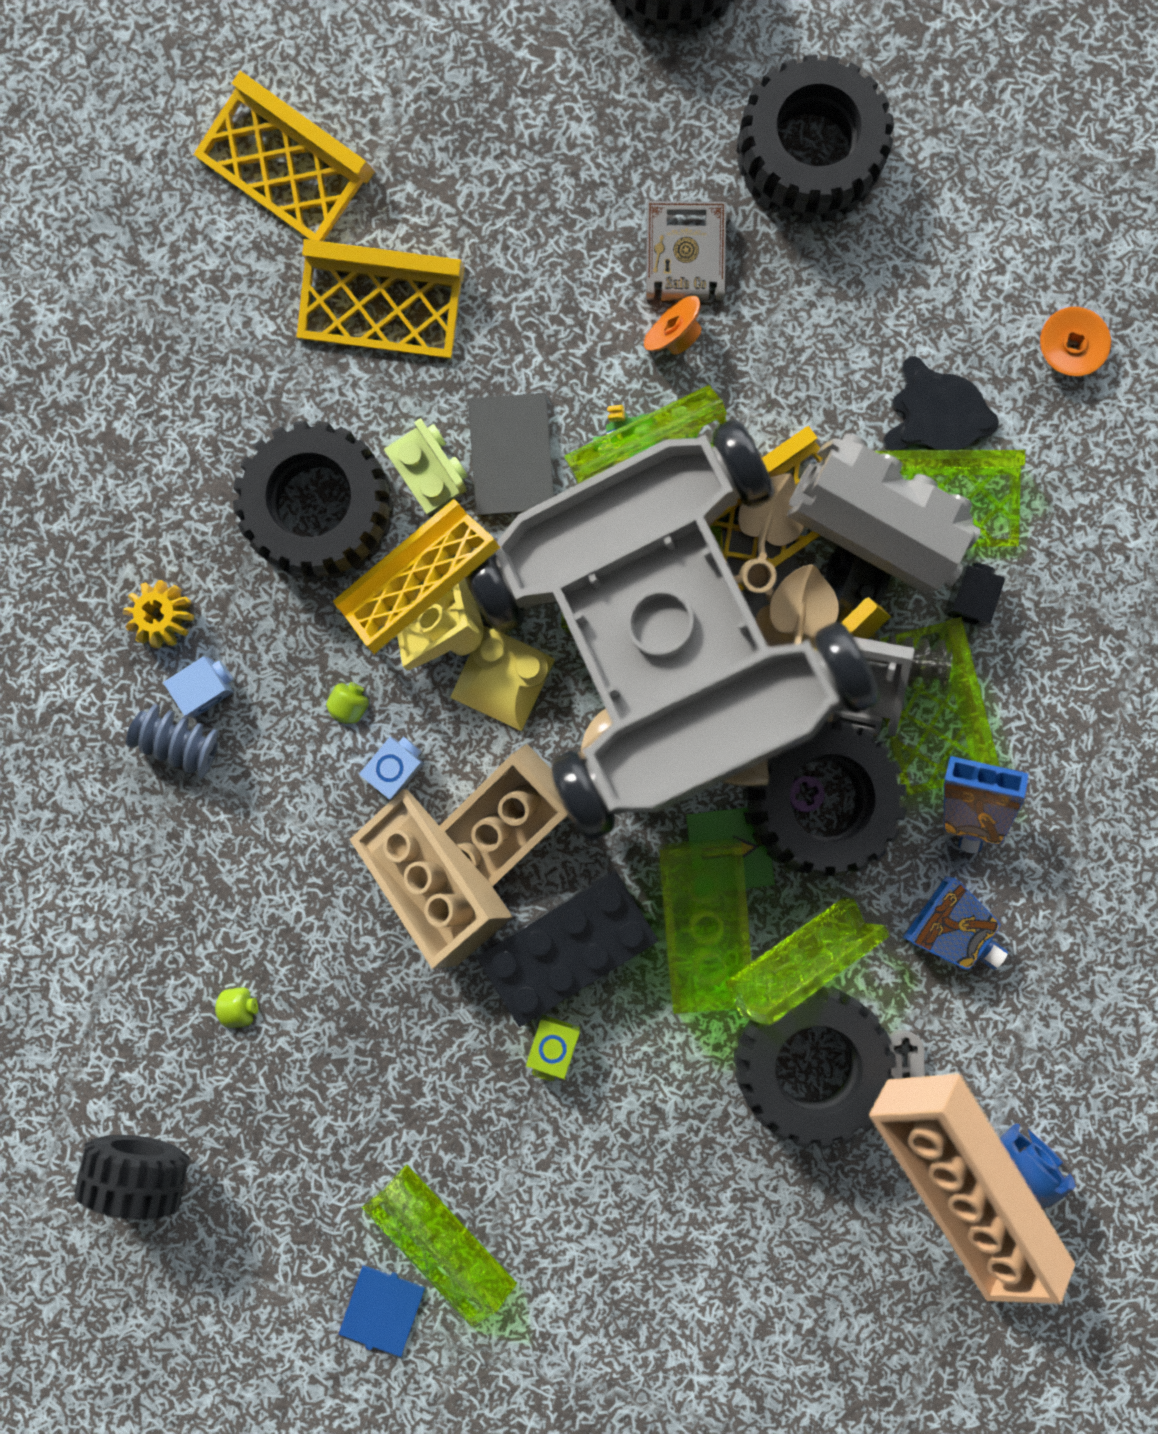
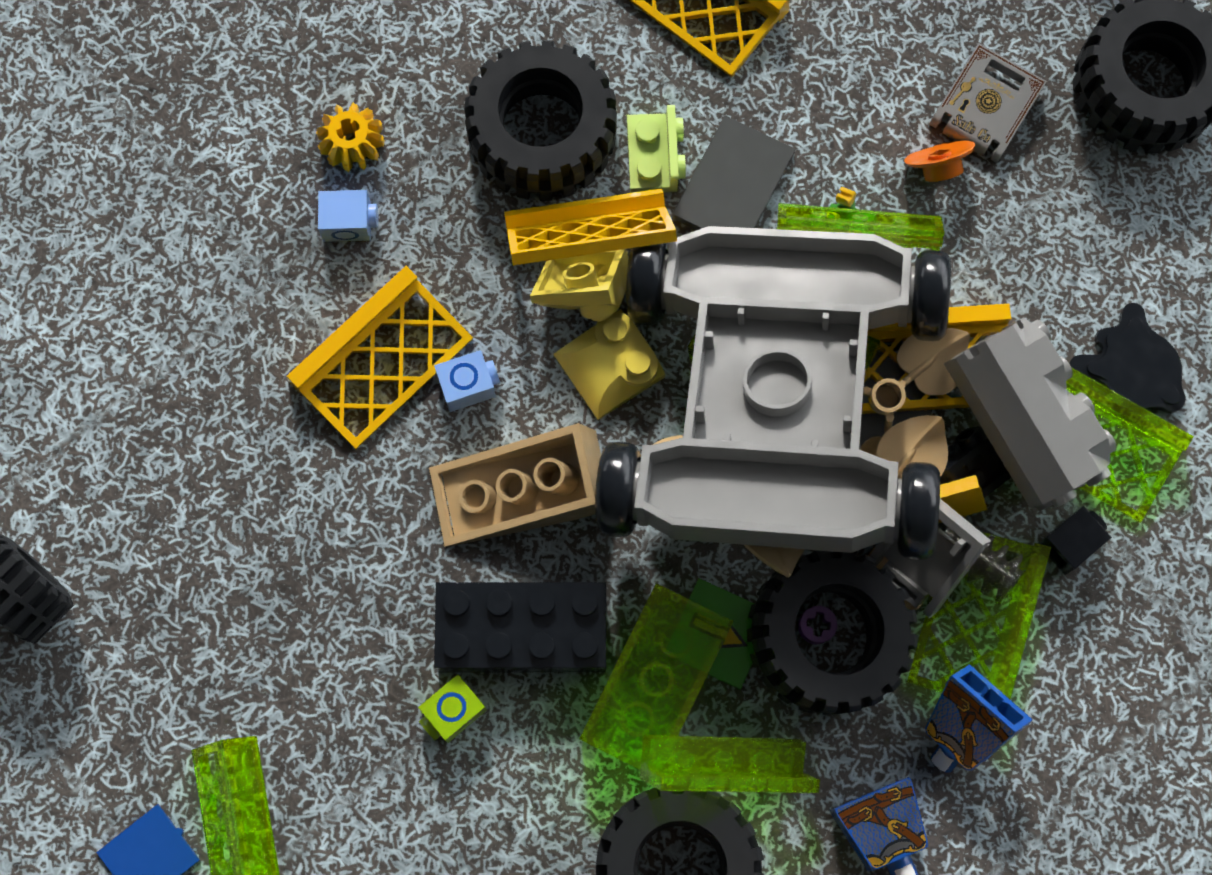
camera: 25 degrees right, 10 degrees down
(173, 740) = (294, 246): sand blue piece -> none
(235, 1008) = (197, 507): lime piece -> none
(273, 784) = (355, 332): none -> yellow fence
(347, 703) = (463, 304): lime piece -> none
(429, 882) = (436, 498): tan slope -> none

